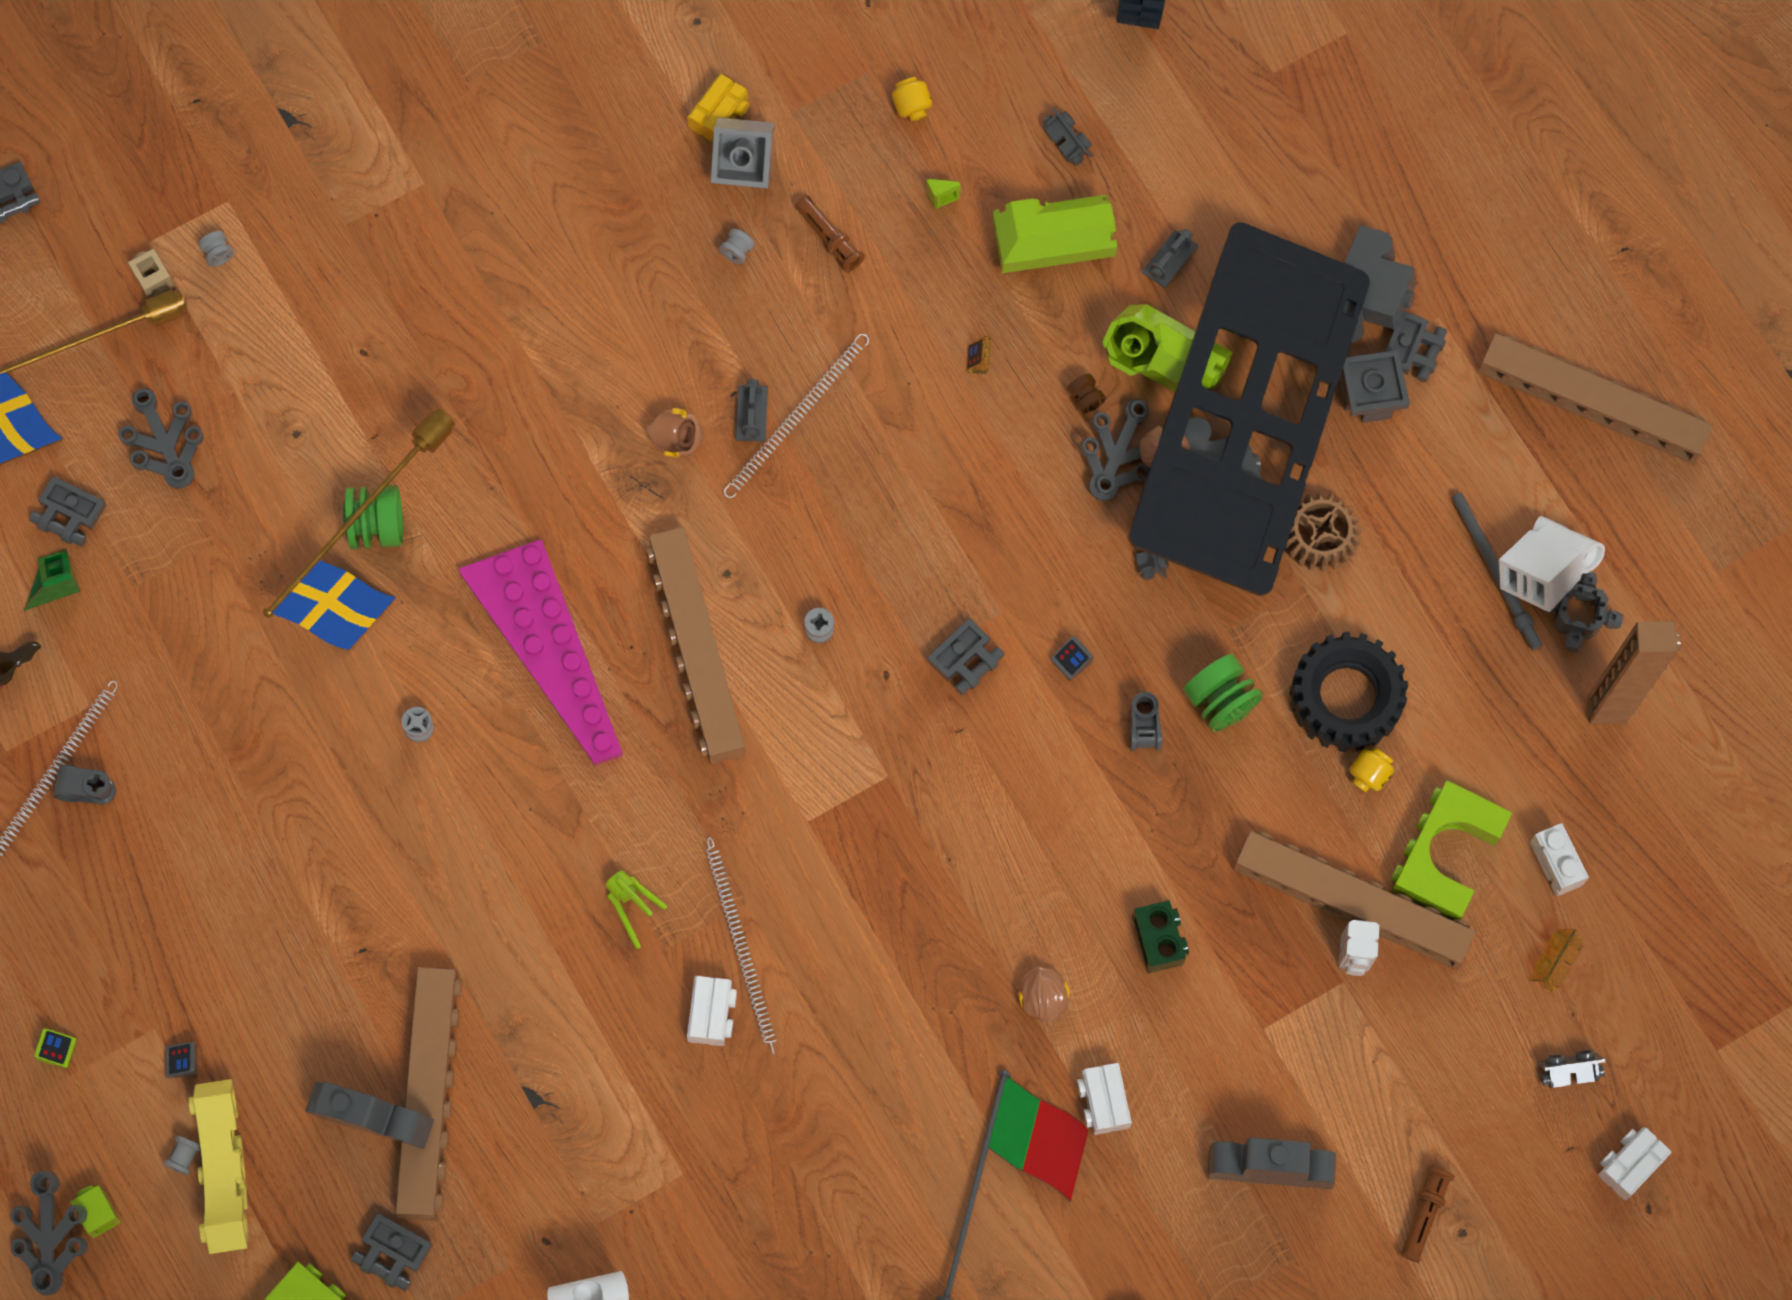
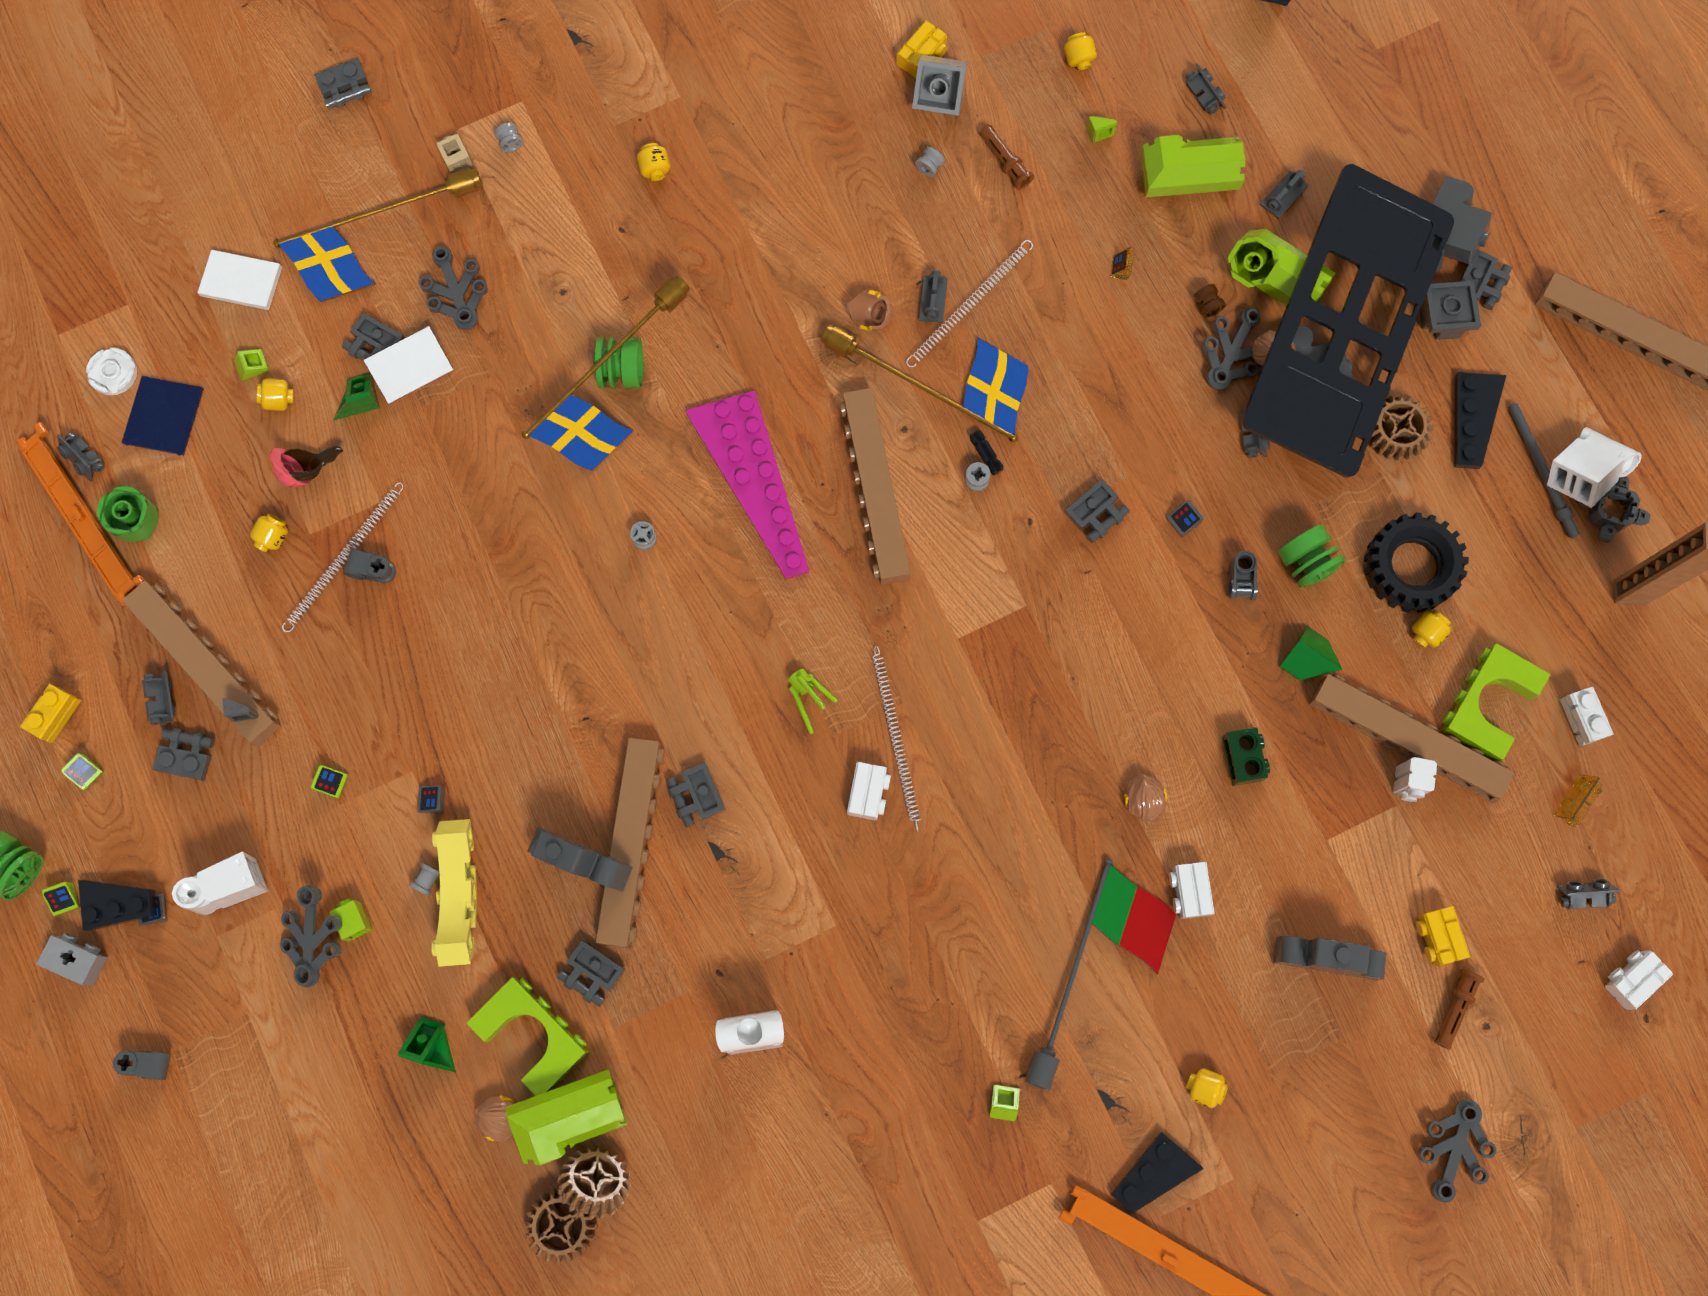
camera: 10 degrees right, 5 degrees up
(114, 536) = (408, 365): none -> white tile
(397, 268) = (653, 161): none -> yellow head
(512, 1027) = (703, 792): none -> dark grey plate
(828, 595) = (986, 452): none -> black axle
(829, 519) = (991, 389): none -> flag
(1230, 812) = (1310, 657): none -> green slope
(1403, 1130) = (1442, 936): none -> yellow brick
(1413, 502) = (1475, 412): none -> black wing

